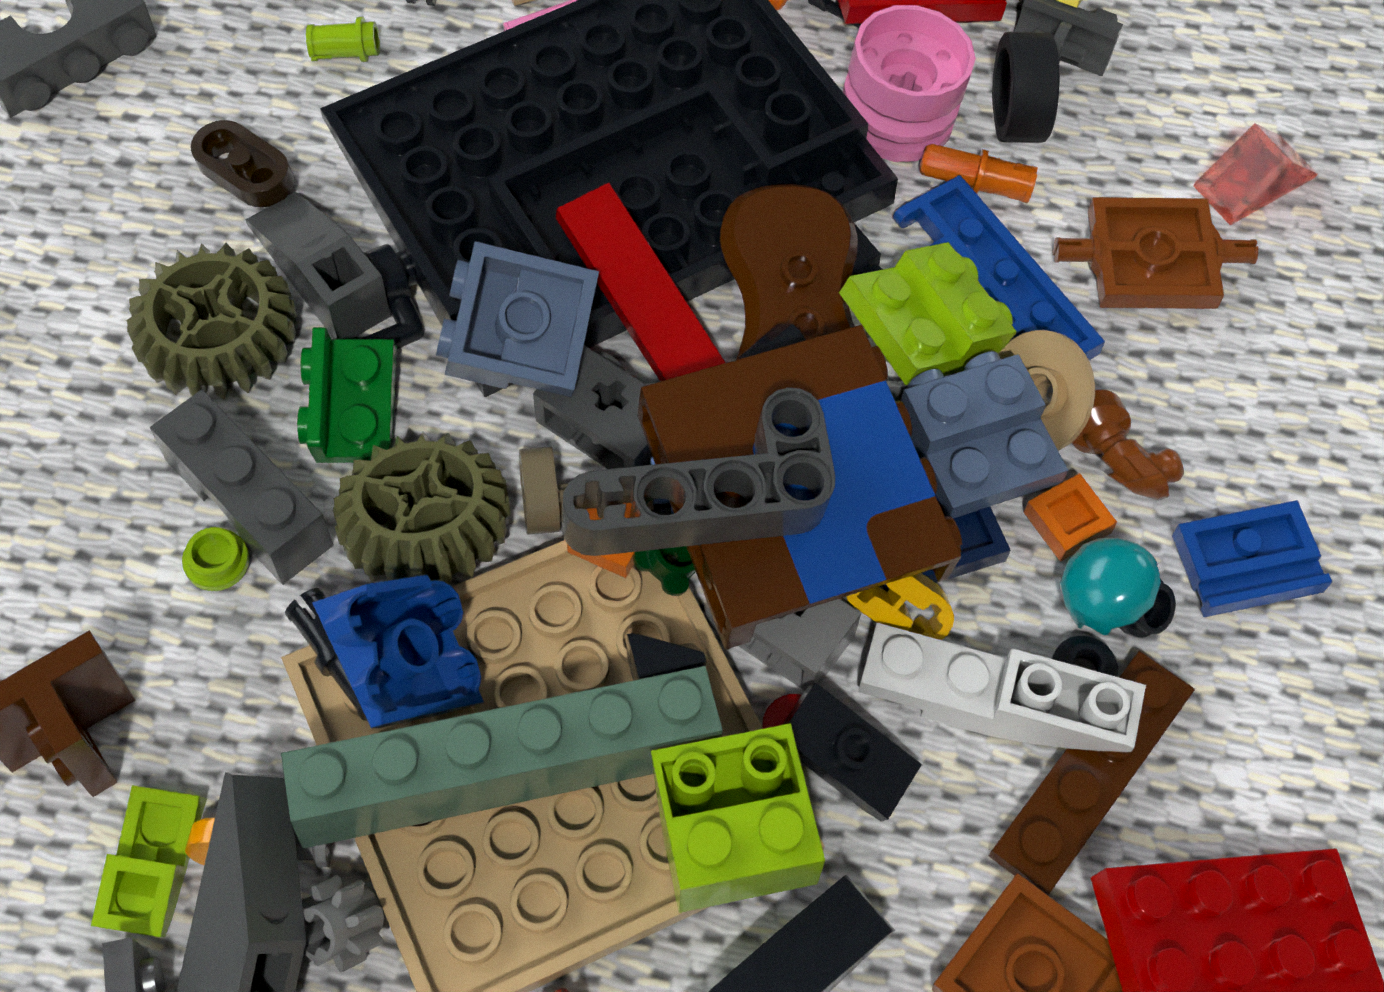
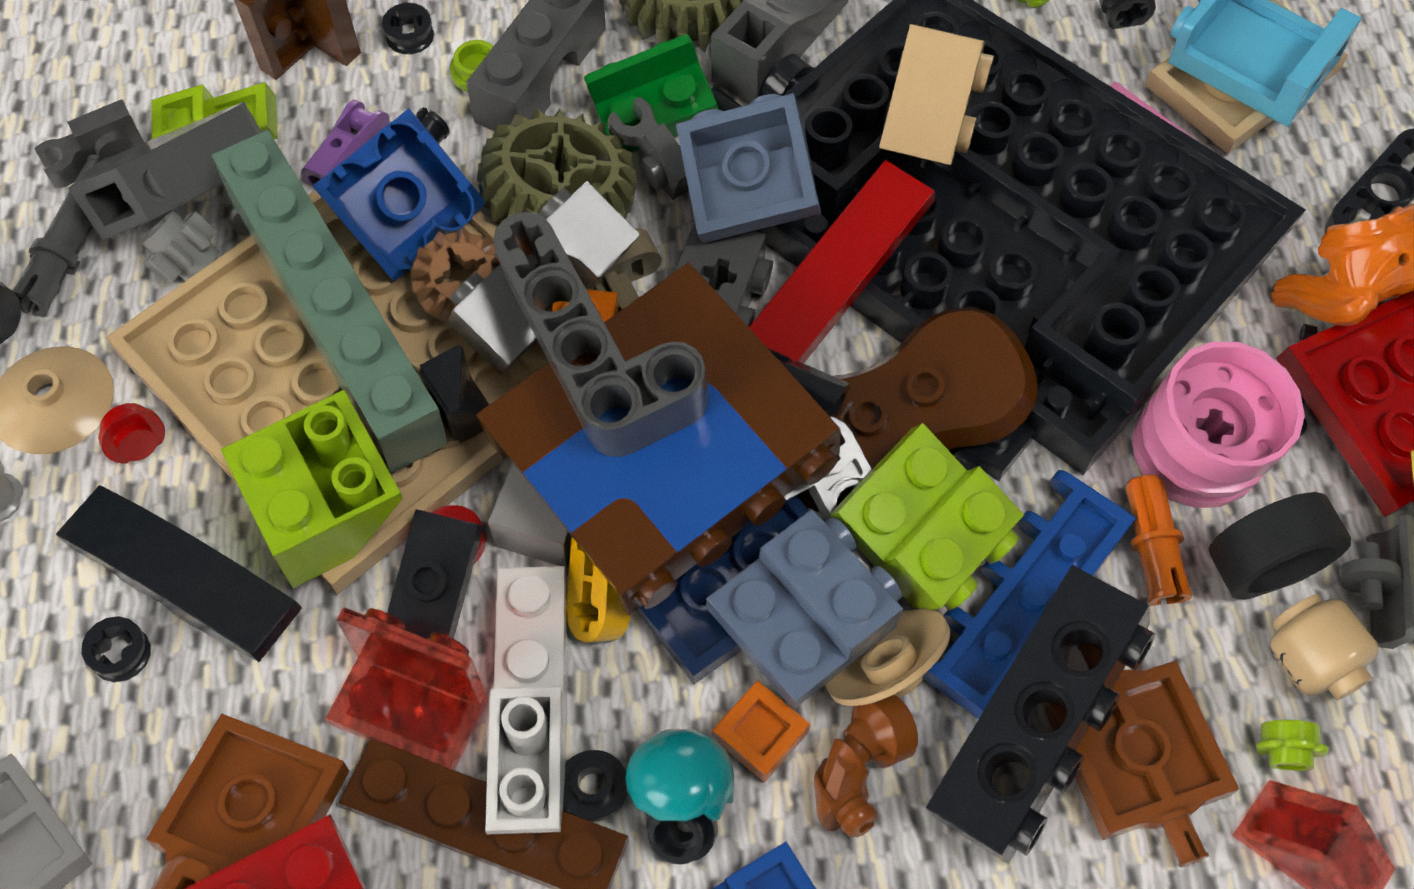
camera: 75 degrees right, 0 degrees up
(112, 601) = (408, 42): none -> black bush
(266, 726) = (342, 142): none -> medium lavender bar
(430, 409) = (660, 152): none -> dark grey plate
(500, 647) = (433, 267): none -> medium nougat gear
(512, 131) = (934, 93): none -> tan brick
(584, 593) = (487, 309): none -> arch
(961, 801) = (408, 689): none -> clear red bracket
(1107, 99) = (1323, 647): none -> tan head
(1128, 328) = (1079, 613): none -> black brick
(1175, 155) = (1291, 744): none -> lime plate

